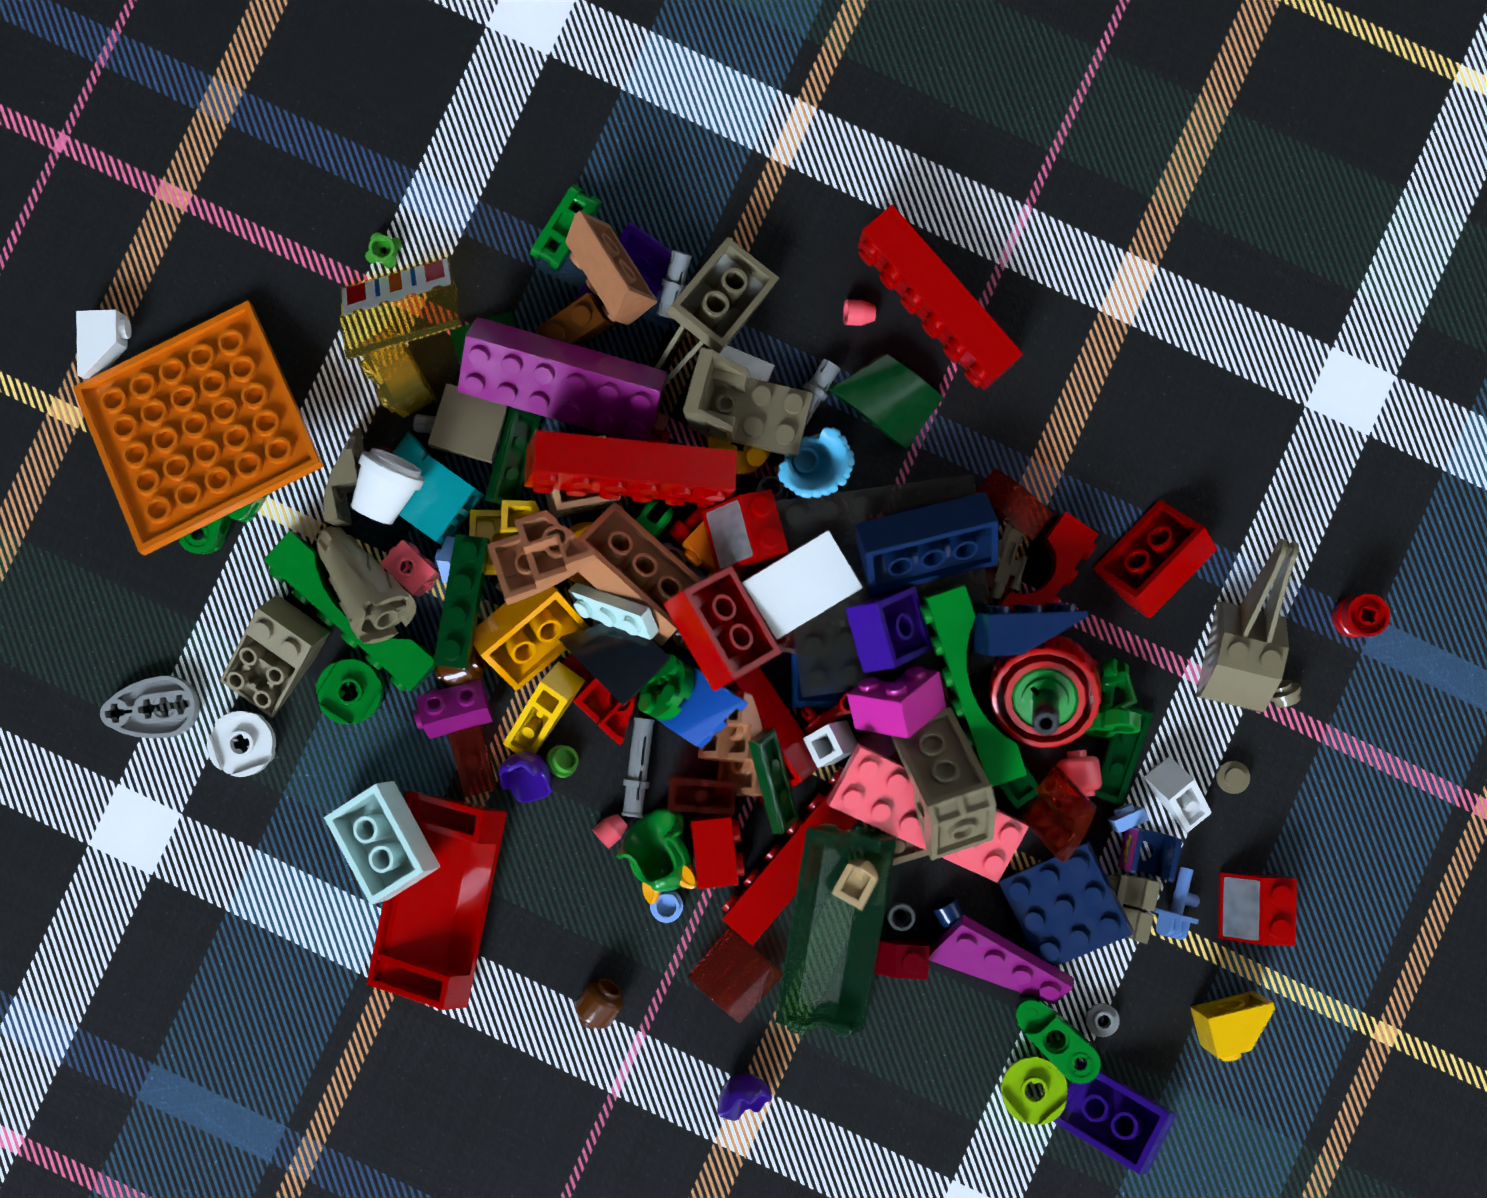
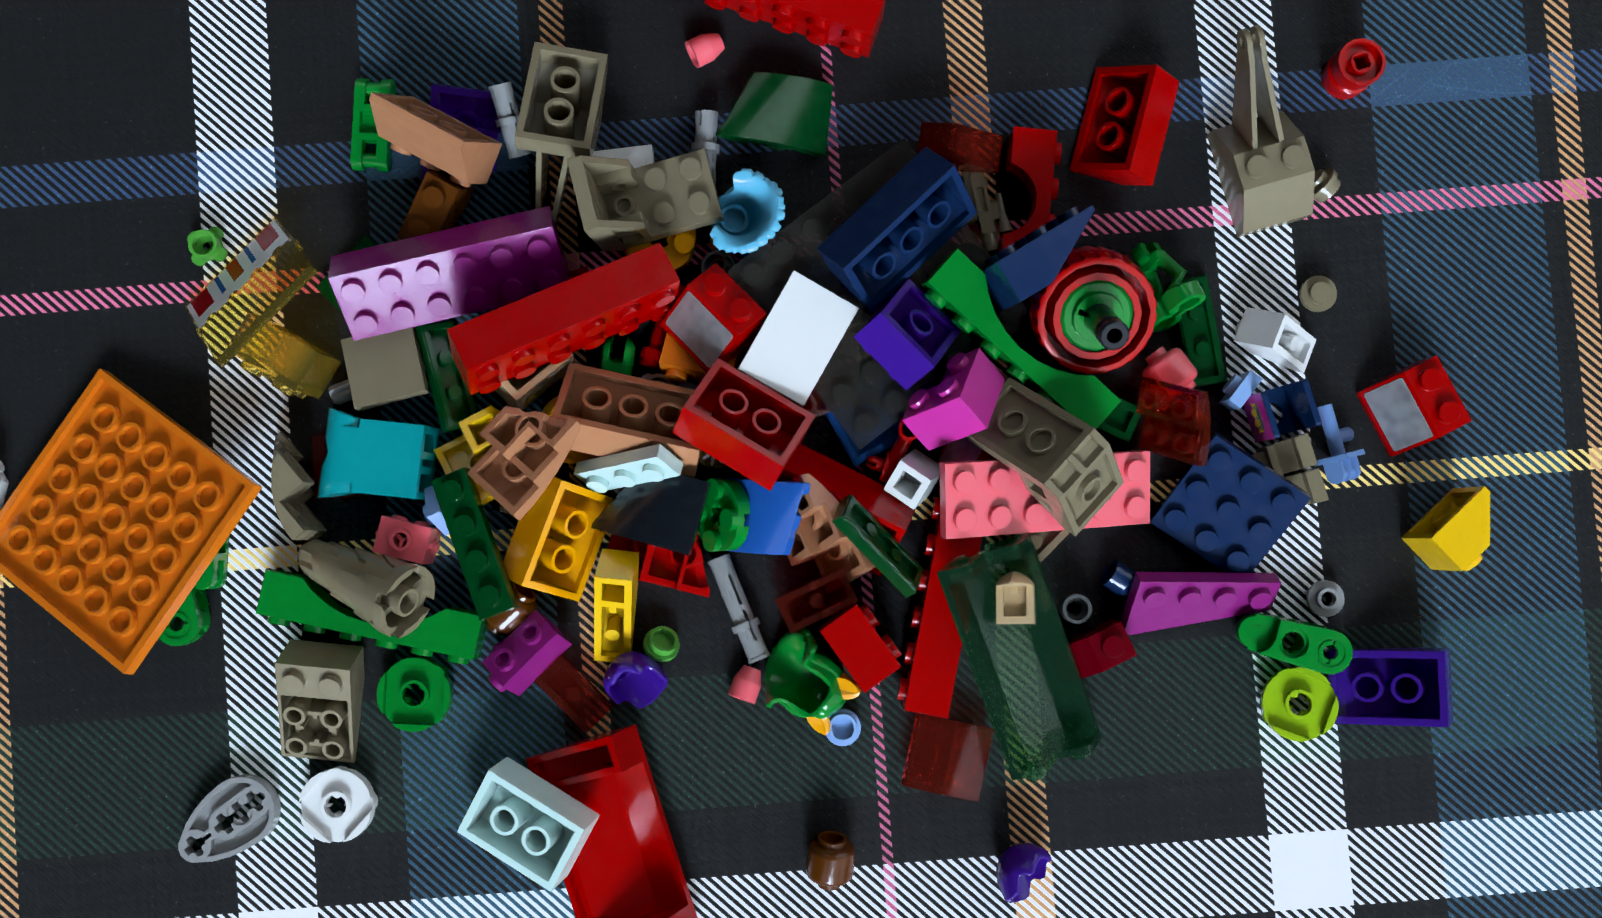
camera: 25 degrees left, 0 degrees up
(384, 485) = (332, 471): white piece -> none

